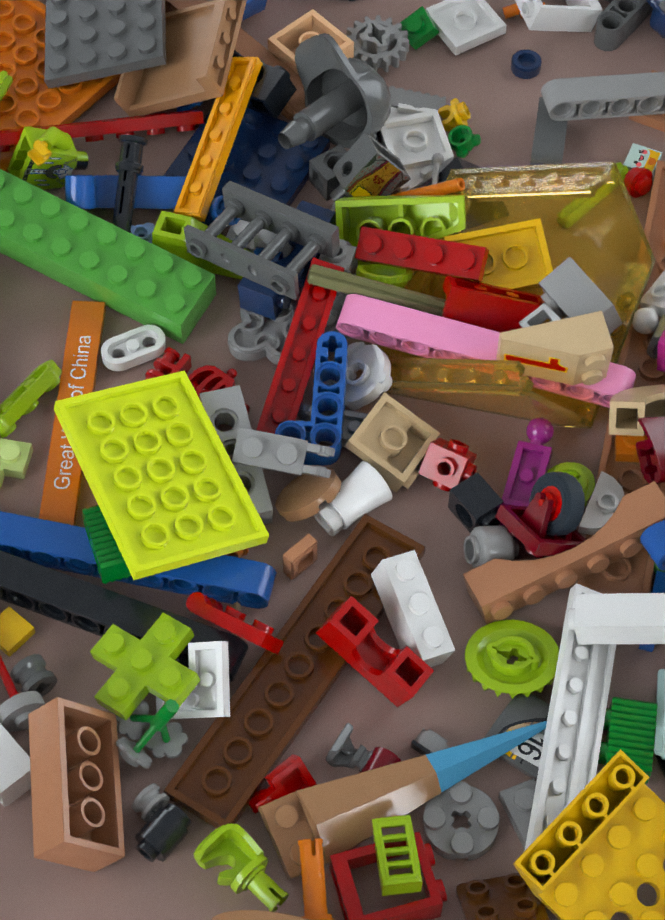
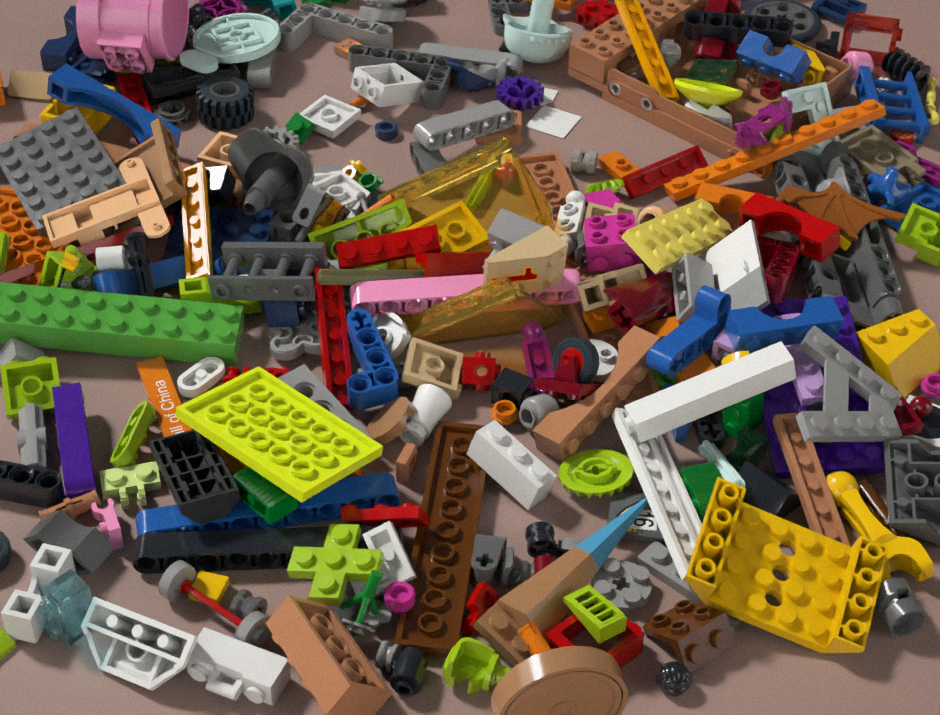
camera: 25 degrees left, 15 degrees down
(45, 492) = (195, 476): none -> black piece
(97, 156) = (112, 258): none -> white beam
(125, 85) = (90, 216): none -> light nougat piece
(197, 735) = (399, 597): none -> dark pink tile
(278, 453) = (360, 395): light grey hinge -> none
(324, 723) = (487, 559): none -> dark grey piece
(390, 670) = (516, 507): red arch -> none
(398, 723) = (540, 539): none -> black wheel
(451, 530) = (504, 412): none -> orange plate

